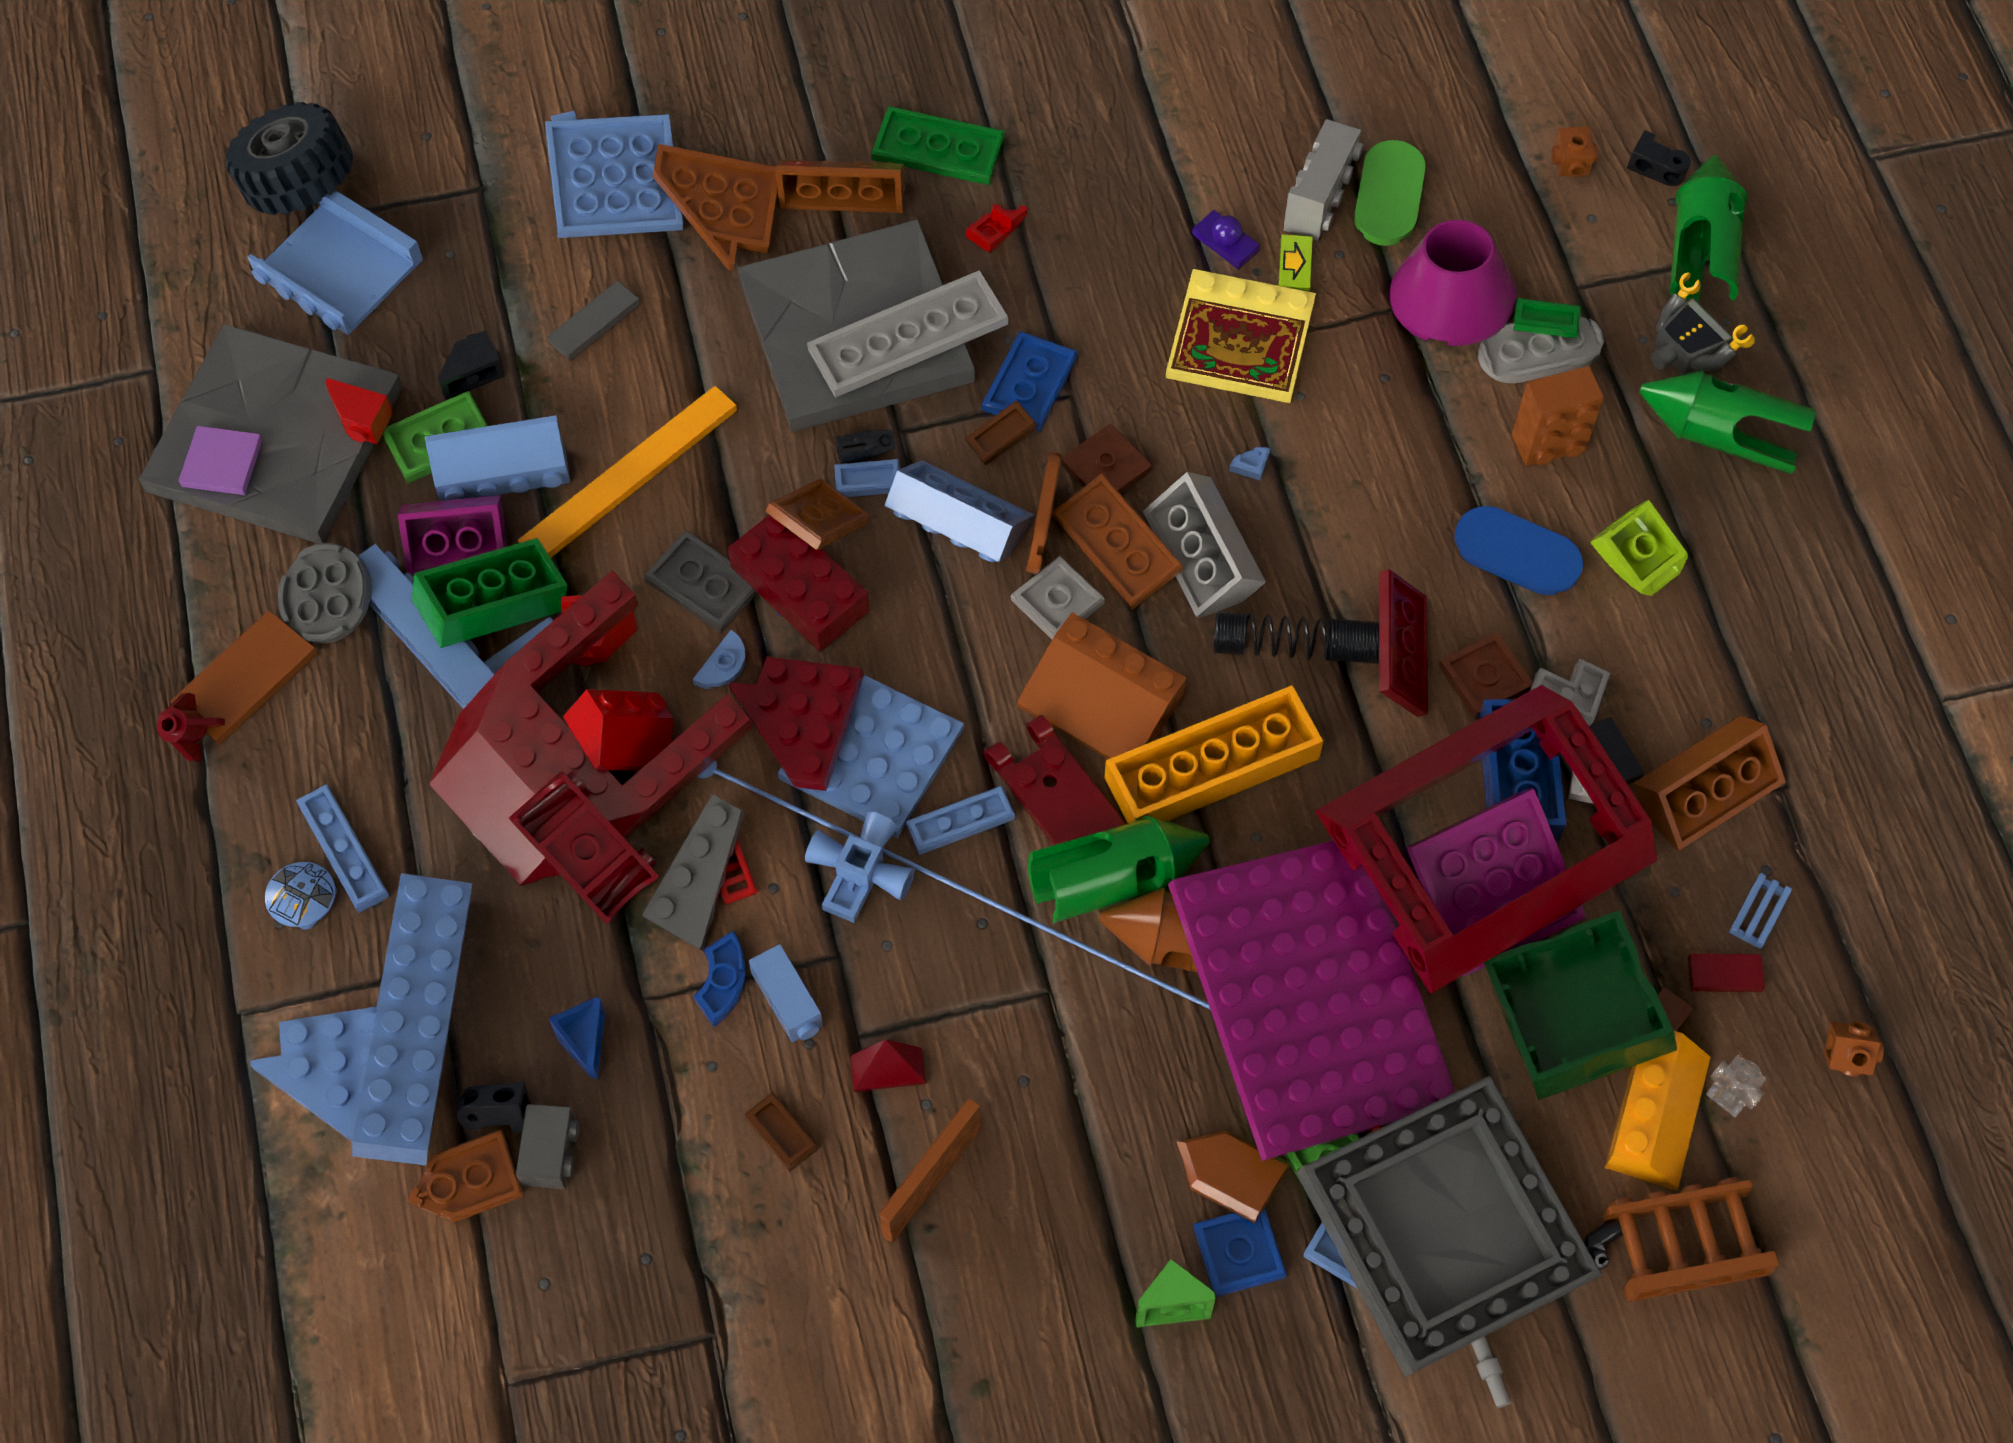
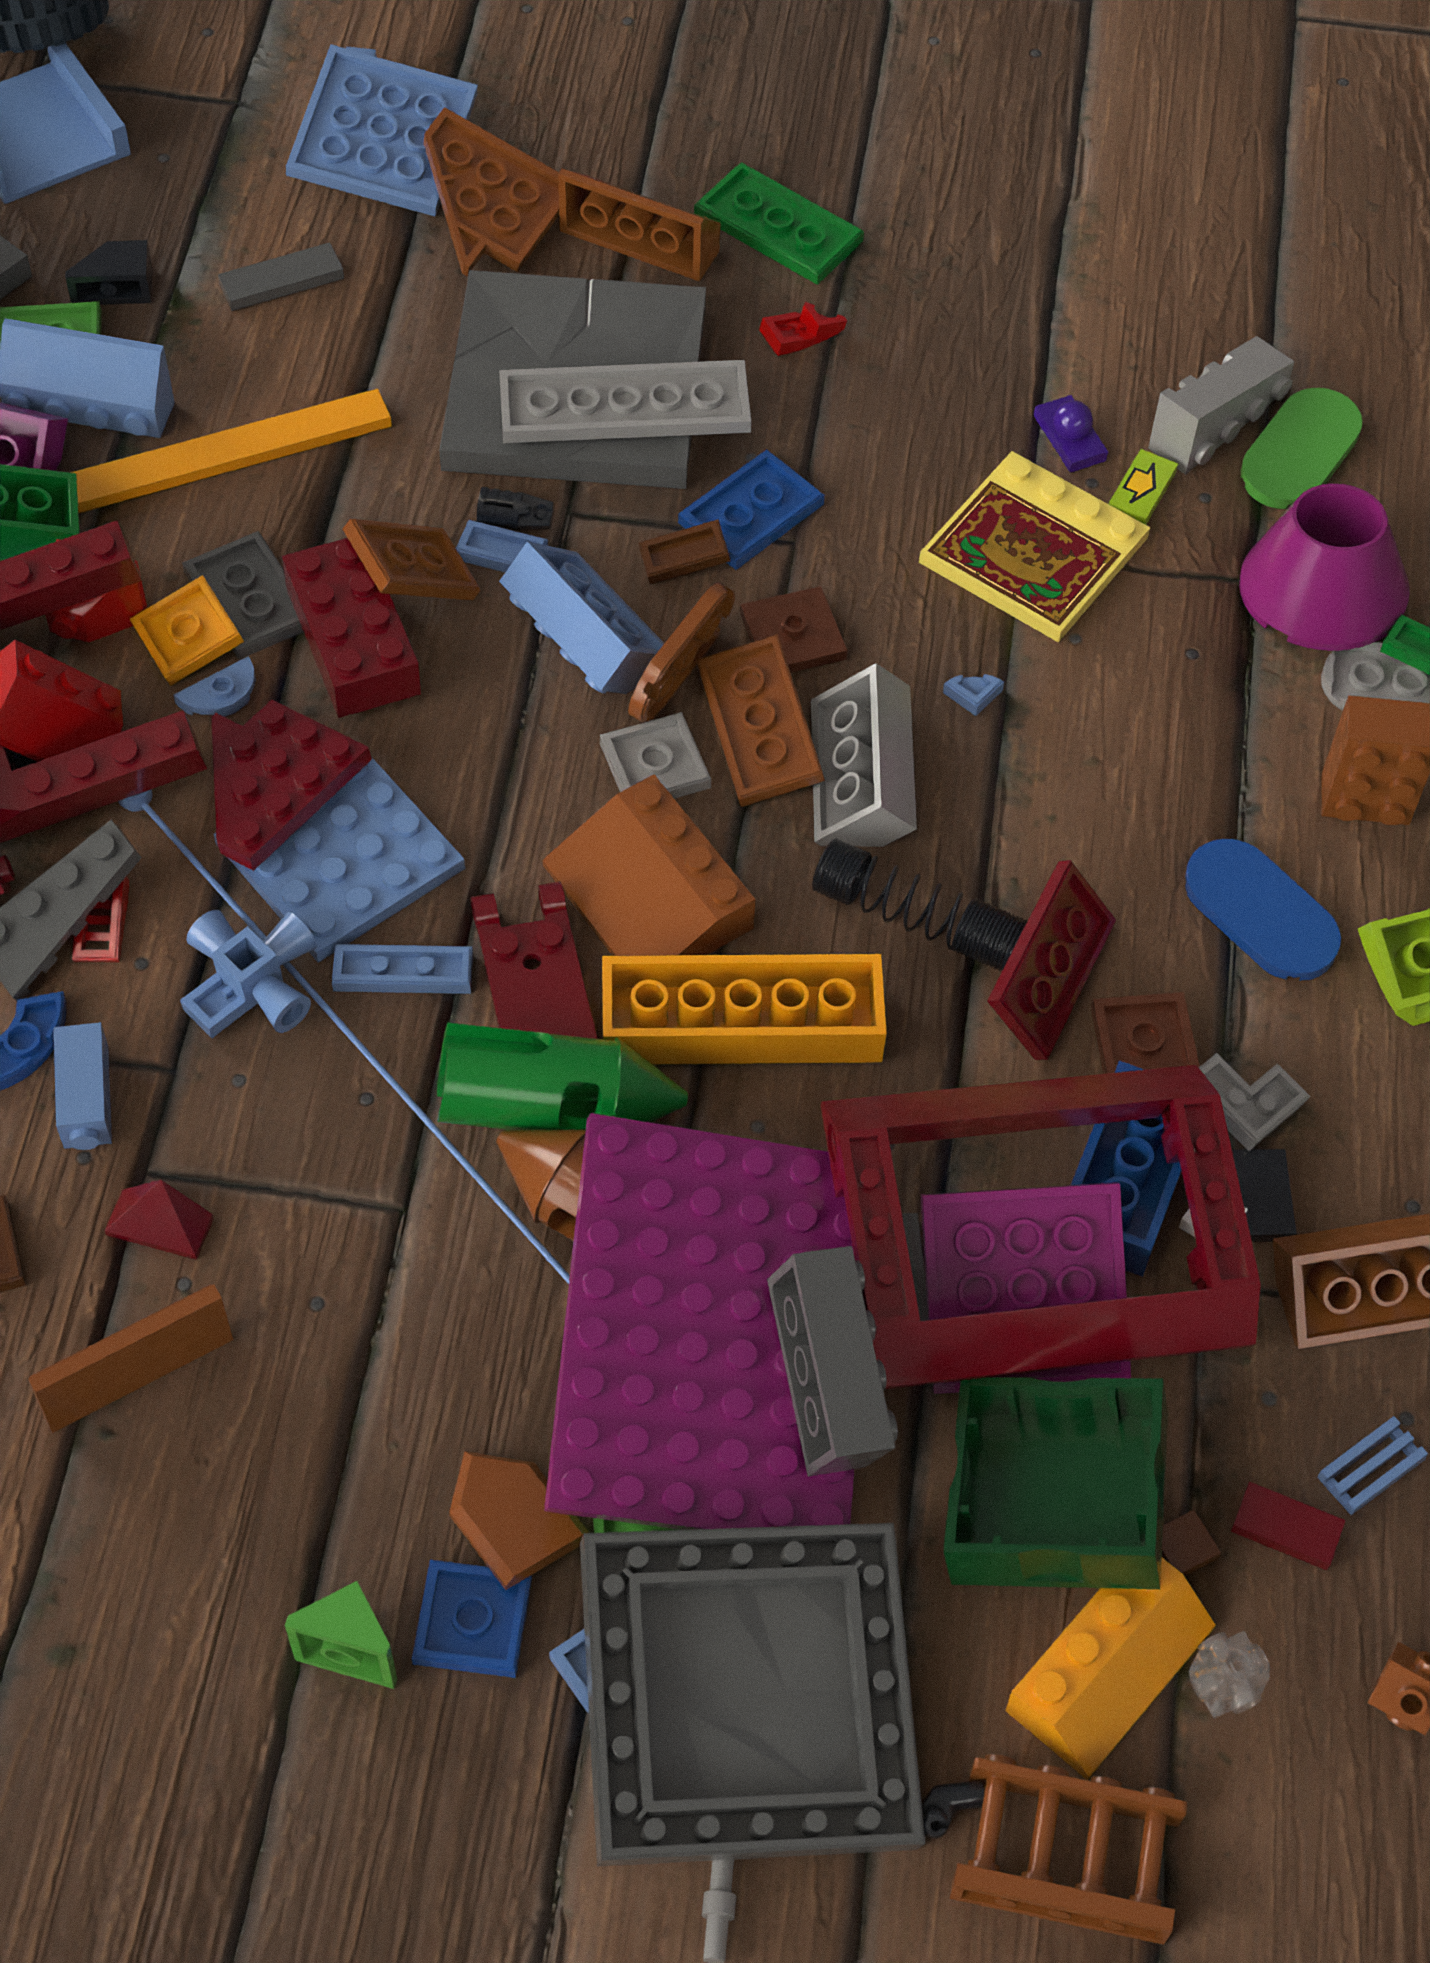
camera: 20 degrees right, 5 degrees down
(675, 626) = (186, 630): none -> light orange tile
(1406, 985) = (831, 1361): none -> dark grey brick

